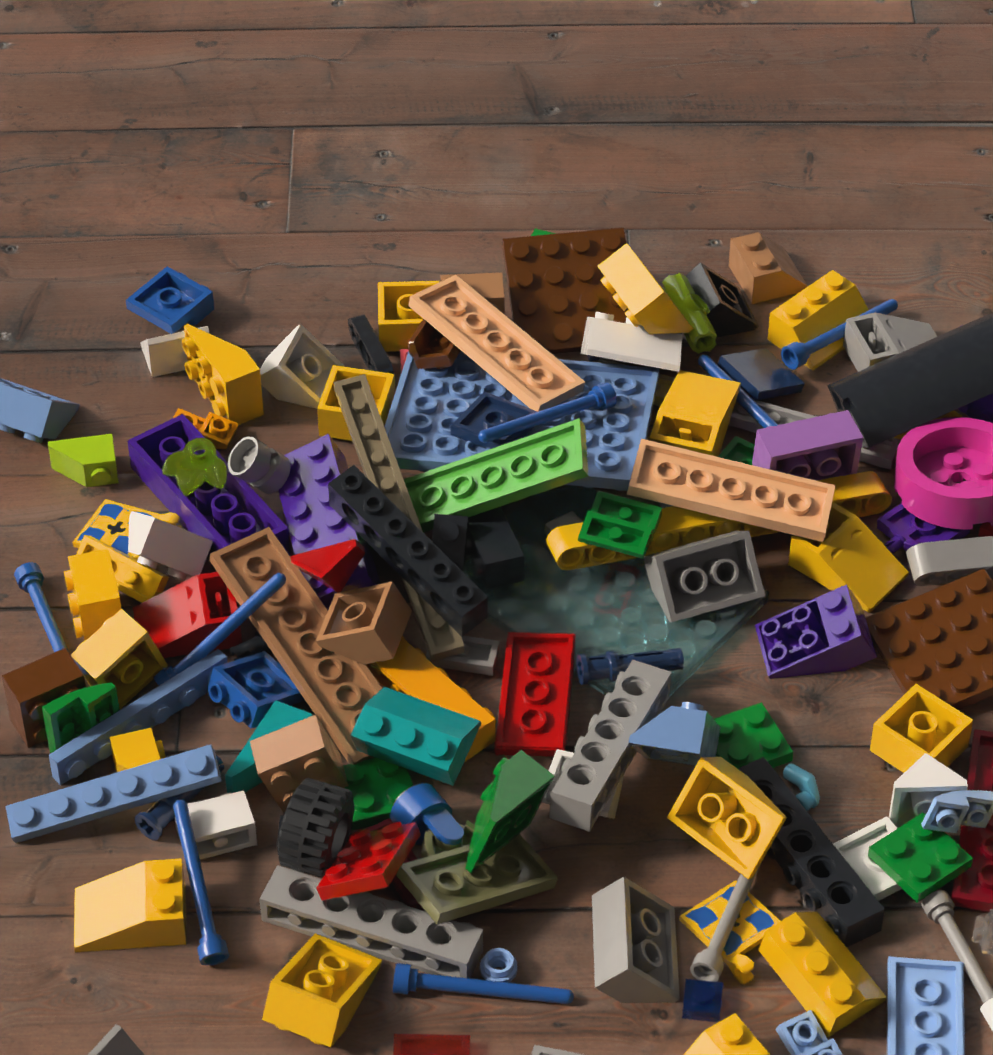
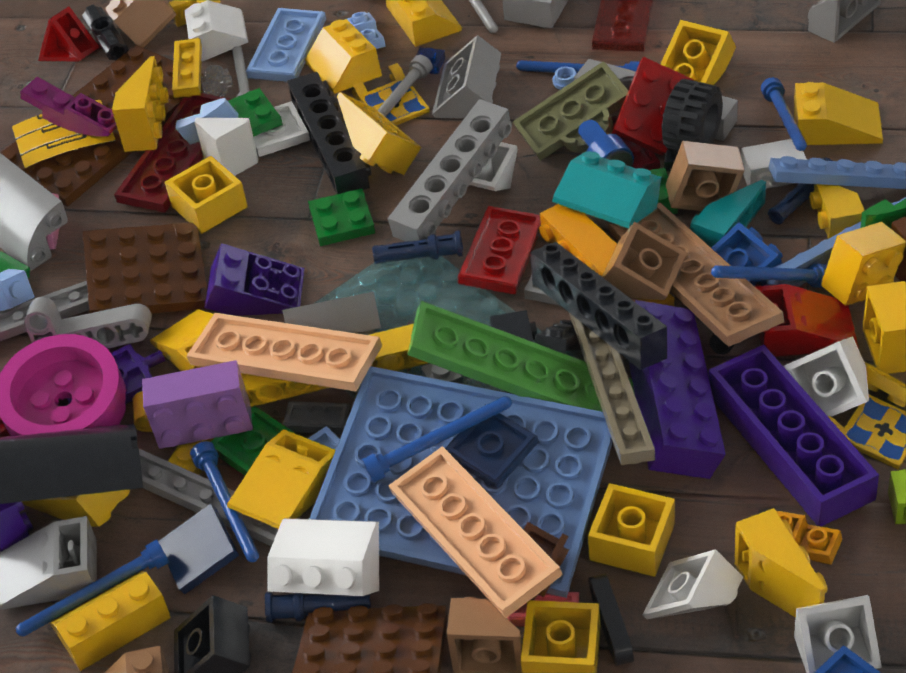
camera: 165 degrees left, 0 degrees up
(194, 469) = (802, 426): clear neon green plate -> none
(259, 465) = (737, 417): light grey wheel -> none
(331, 564) = (673, 286): red slope -> none
(507, 806) = (545, 121): green slope -> none
(620, 524) = (394, 324): green slope -> none
(641, 294) = (294, 582): yellow slope -> none
(678, 735) = (395, 163): medium blue slope -> none
(694, 309) = (249, 601): lime piece -> none
(807, 784) = (307, 180): medium azure arm -> none

